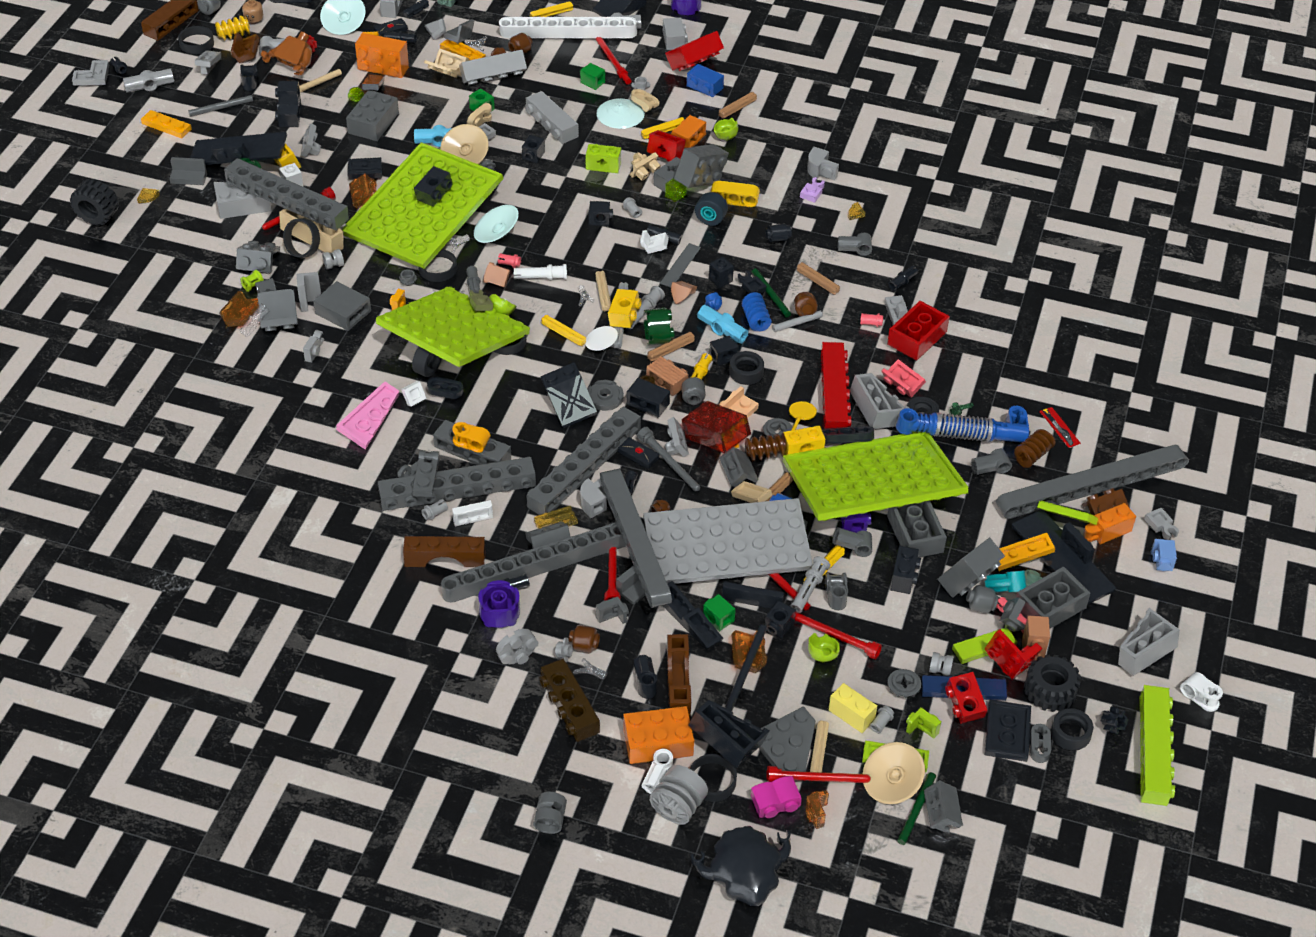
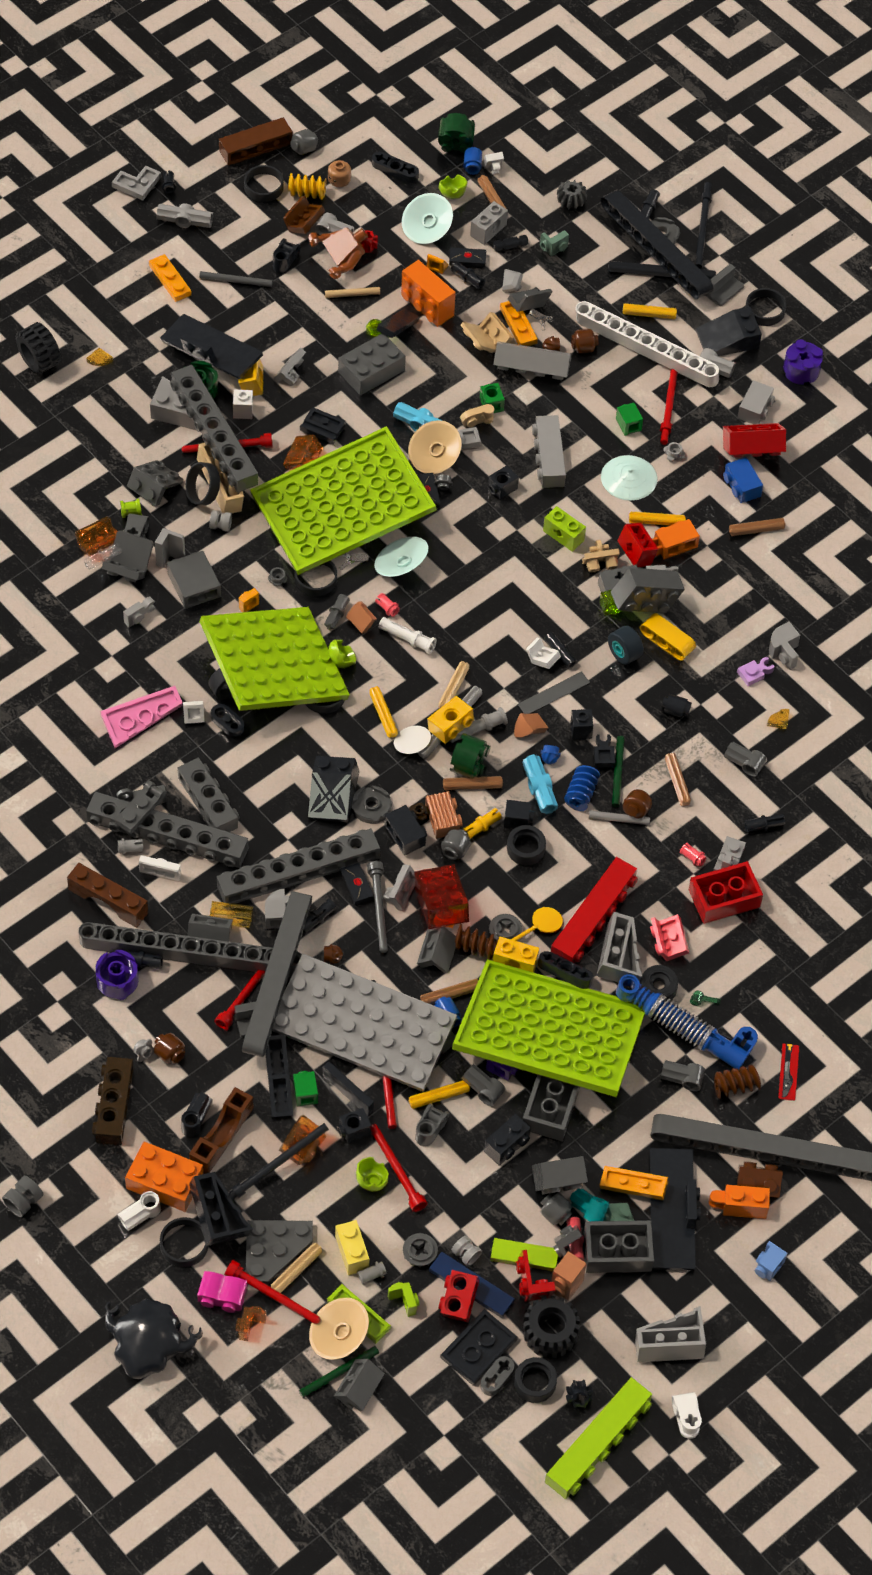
camera: 30 degrees right, 10 degrees up
(188, 171) = (152, 349): dark grey panel -> none
(207, 60) = (256, 216): light grey hinge -> none
(289, 104) = (298, 313): black brick -> none
(433, 186) = (359, 487): black brick -> none
(471, 438) = (203, 789): light orange piece -> none
(480, 302) = (320, 642): olive plate -> none
(517, 647) = (100, 1026): light grey plate -> none
(584, 295) = (432, 681): clear bar -> none
(590, 669) = (155, 1080): clear bar -> none
(600, 213) = (513, 593): black brick -> none
(611, 608) = (211, 1031): dark grey bracket -> none
(630, 205) = (552, 597): light grey pin -> none
(644, 99) = (660, 468): tan plate -> none
(678, 794) = (136, 1242): light grey wheel -> none
(726, 129) = (718, 552): lime hair -> none
(739, 402) = (484, 884): light nougat bracket -> none
(751, 492) = (426, 983): tan tile -> none
(813, 577) = (413, 1098): light grey pin -> none
(1067, 512) = (706, 1167): lime tile -> none
(1161, 521) = (798, 1226): light grey plate -> none

